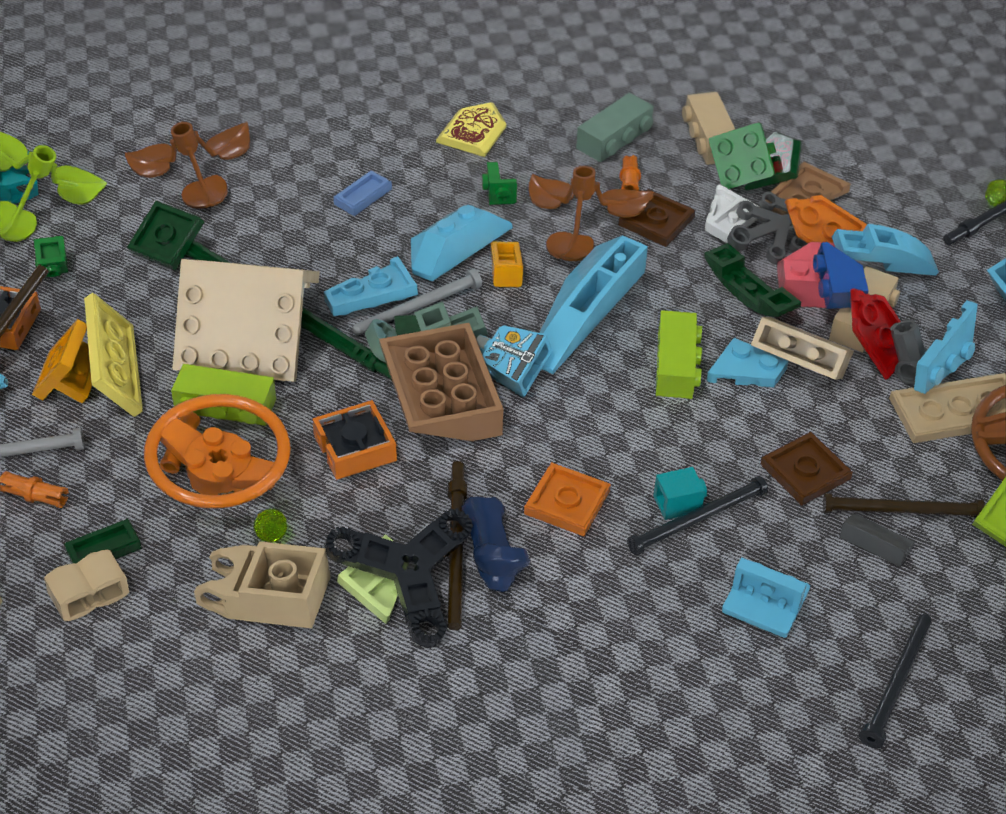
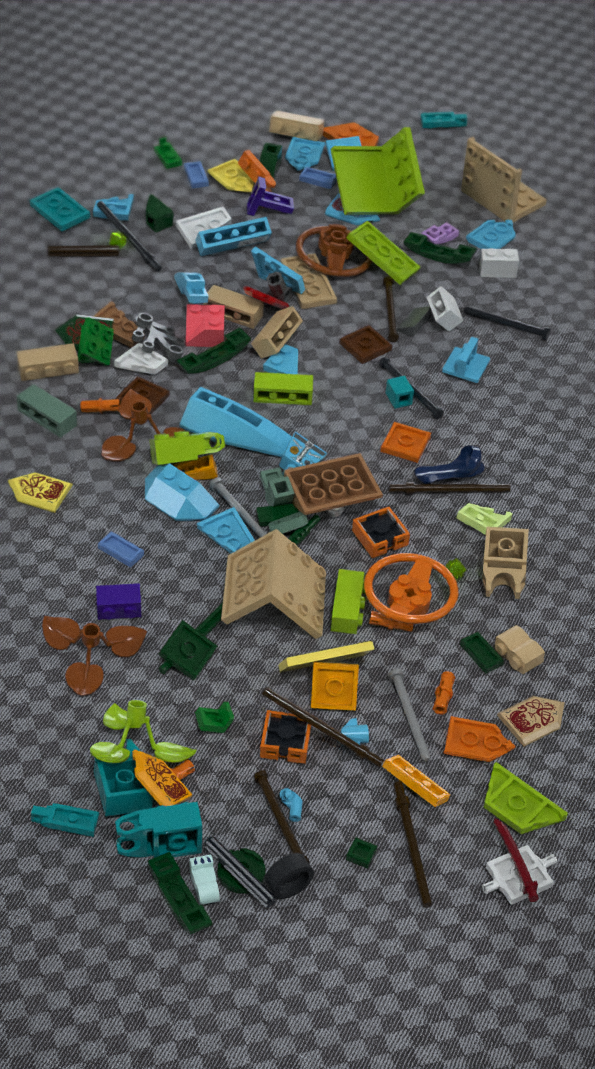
camera: 95 degrees left, 0 degrees up
(262, 183) = (118, 601): none -> dark purple brick
(414, 586) = (480, 500): black piece -> none
(499, 190) = (116, 472): green bracket -> none
(527, 229) = (183, 446): none -> lime brick
(818, 218) = (162, 312): orange tile -> none
(837, 276) = (231, 301): blue slope -> none
(902, 571) = (445, 309): none -> white brick
(969, 166) = (83, 250): none -> dark brown axle

